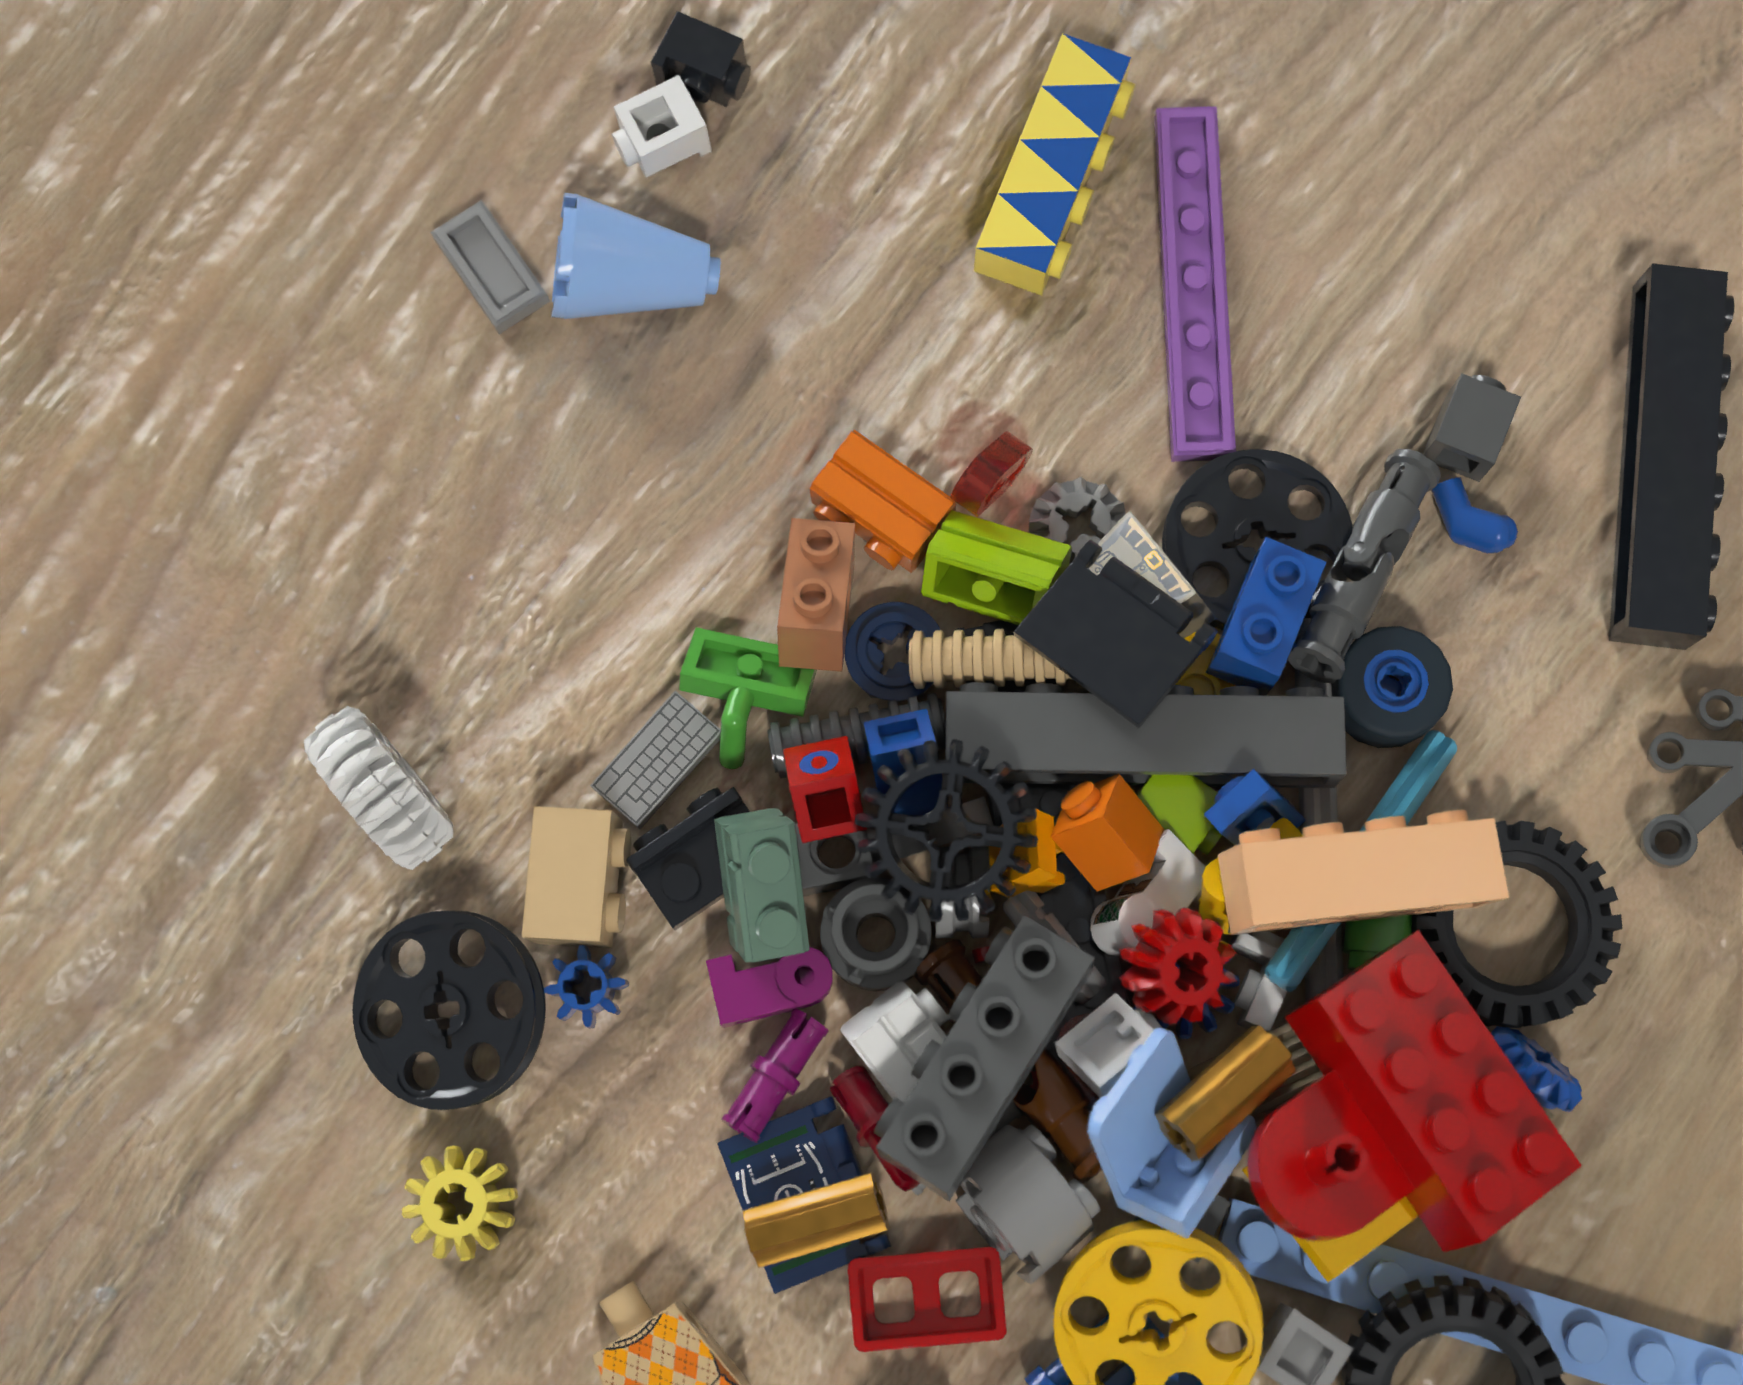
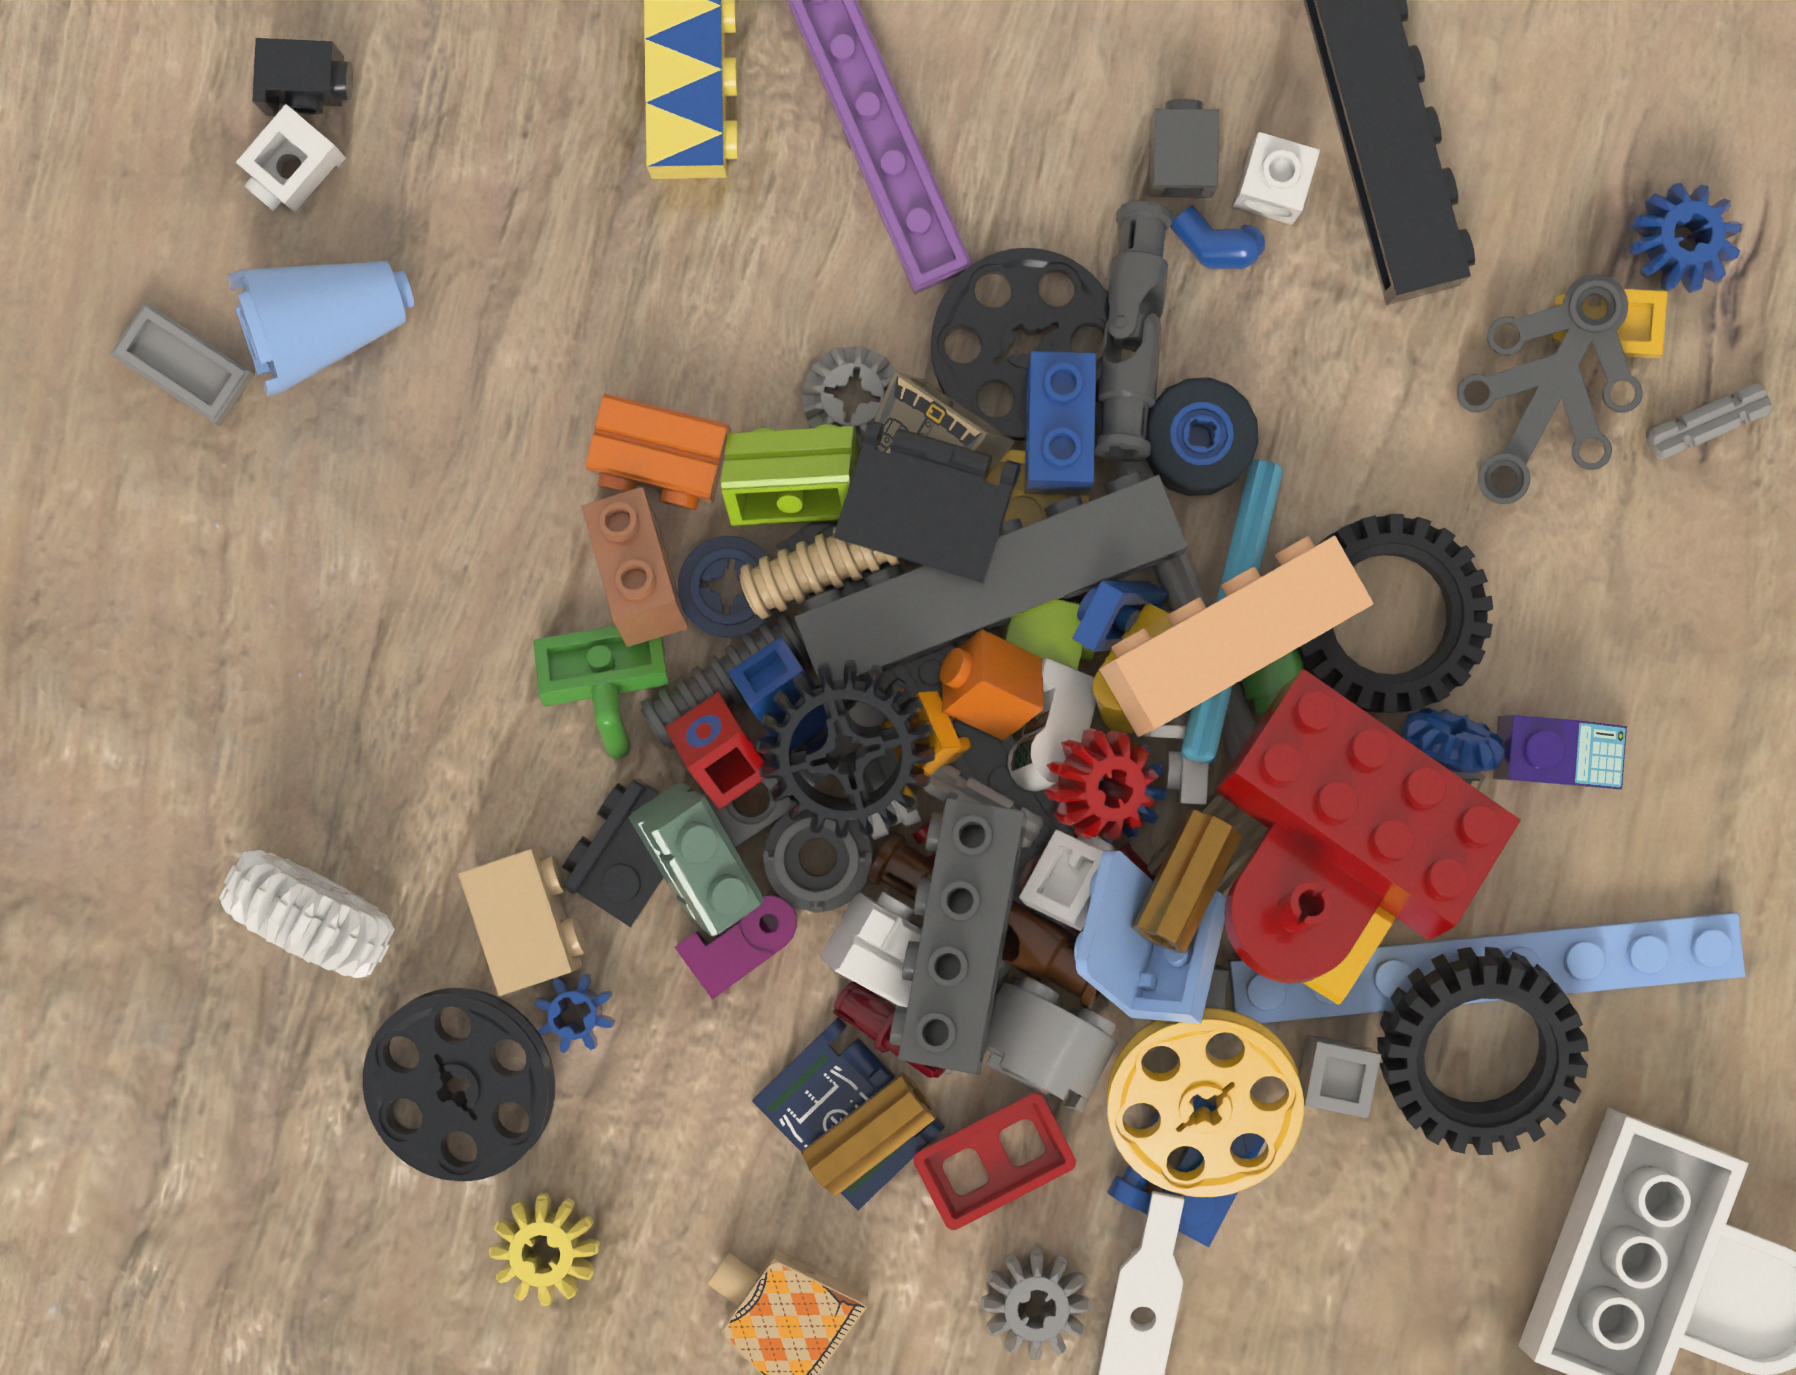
camera: 25 degrees left, 10 degrees up
(657, 760) = (550, 777): light grey tile -> none
(775, 1075) = (779, 1021): magenta pin -> none
(991, 473) = (750, 383): clear red beam -> none
(1549, 481) = (1276, 178): none -> white brick
(1633, 1124) = (1561, 751): none -> dark purple slope

